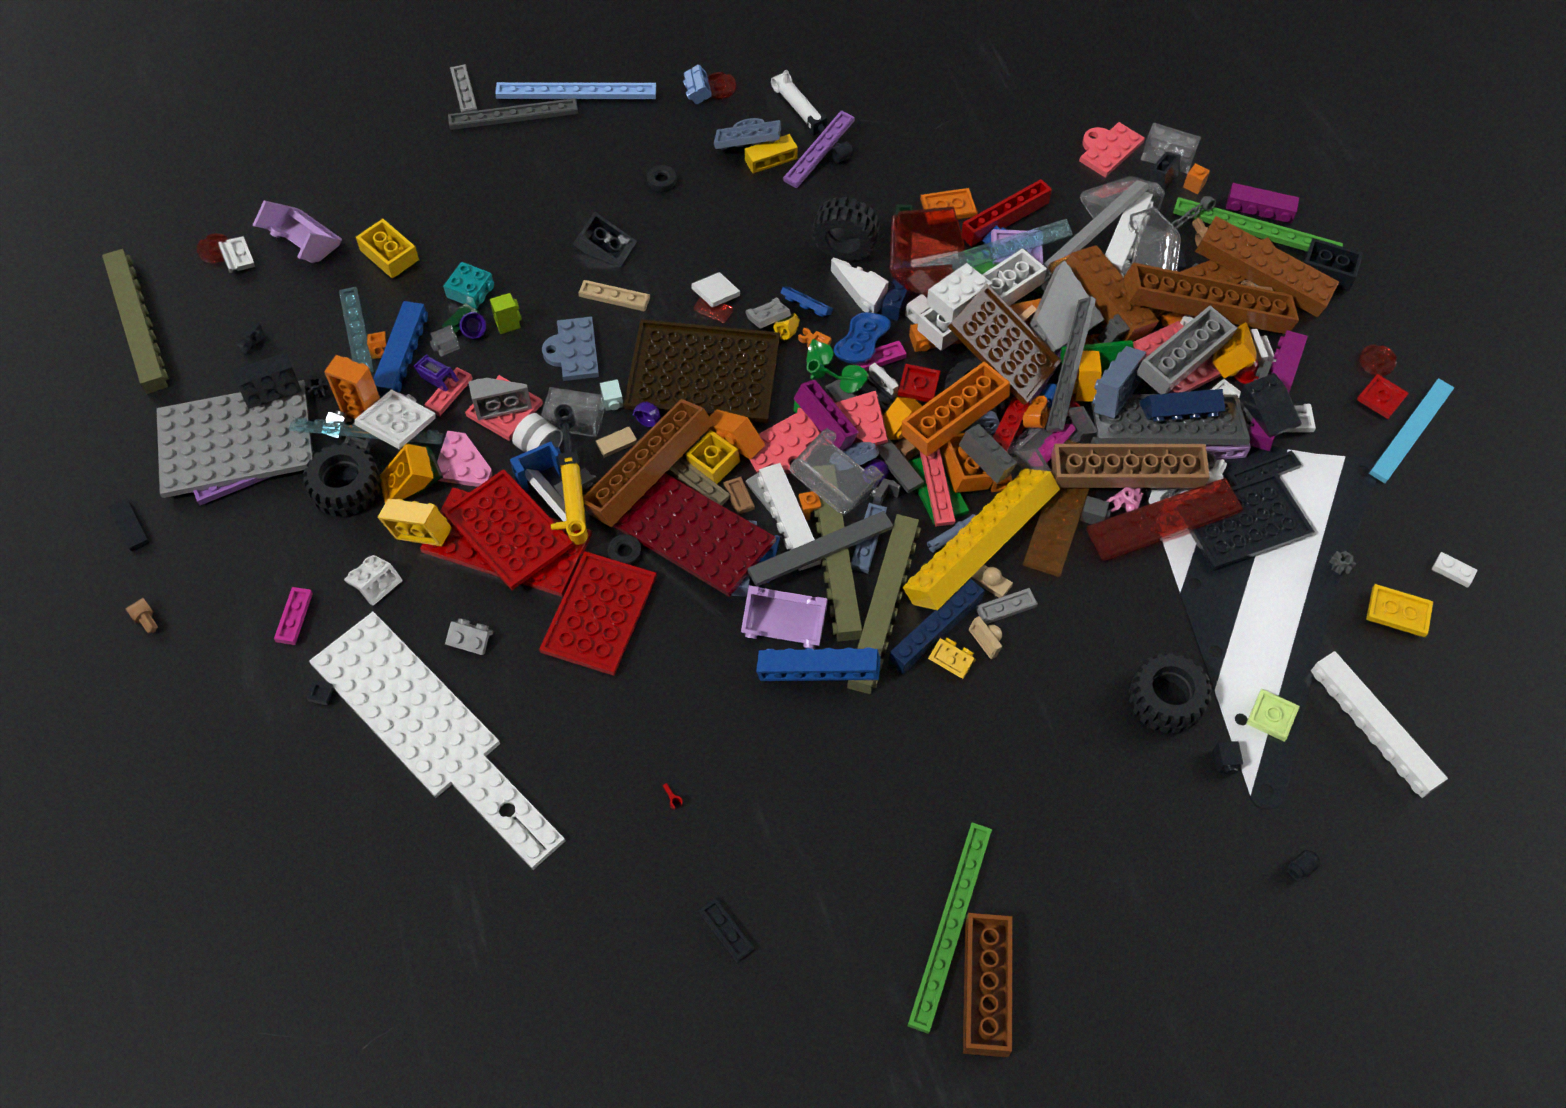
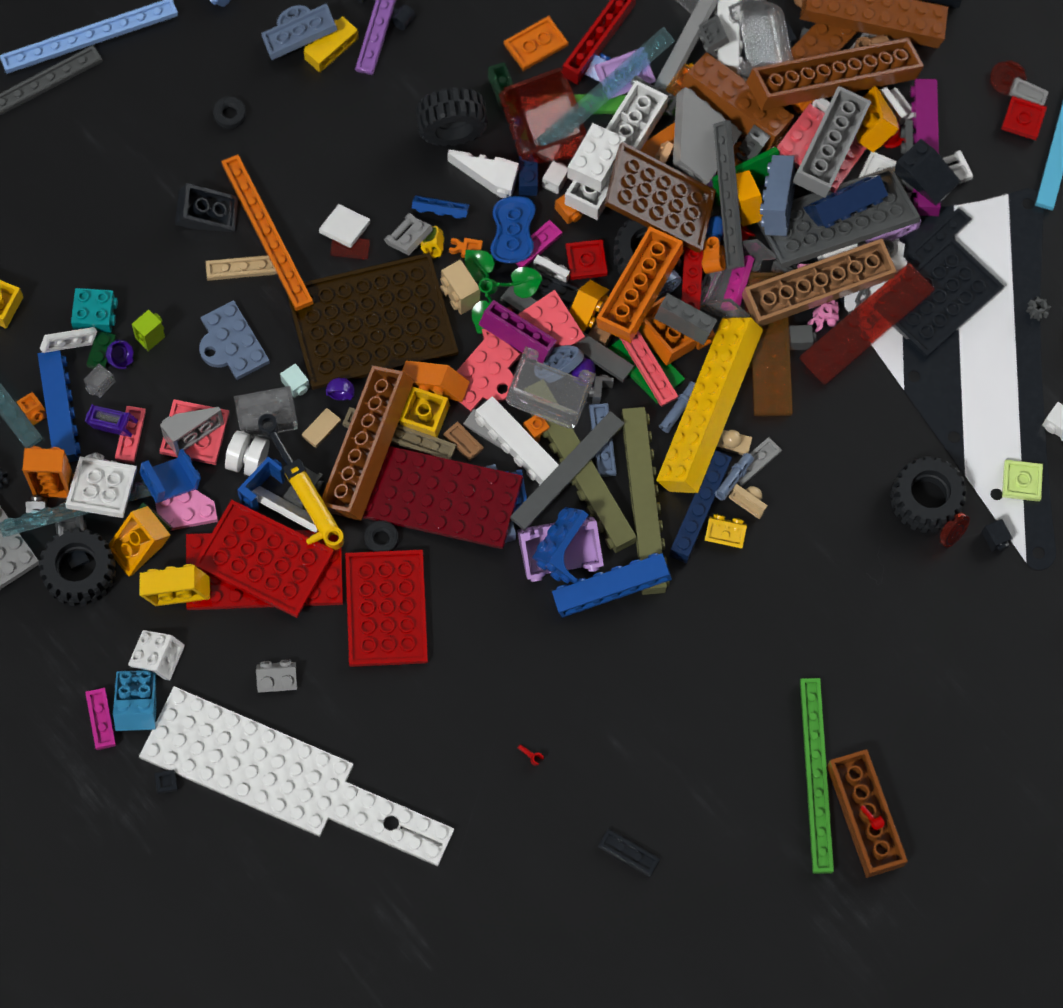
camera: 25 degrees left, 10 degrees up
(331, 611) = (135, 700): none -> dark azure slope
(433, 298) = (68, 339): none -> white tile
(461, 436) = (170, 478): none -> blue panel
(645, 274) = (267, 233): none -> orange plate
(771, 611) = (552, 549): none -> blue bracket
(792, 365) = (460, 287): none -> tan brick
(985, 606) = (738, 471): none -> sand blue pin
(993, 996) = (877, 822): none -> red hand
(1108, 234) = (713, 35): none -> dark grey bracket
(1184, 735) = (954, 530): none -> clear red tile
(1394, 375) = (1028, 91): none -> light grey tile

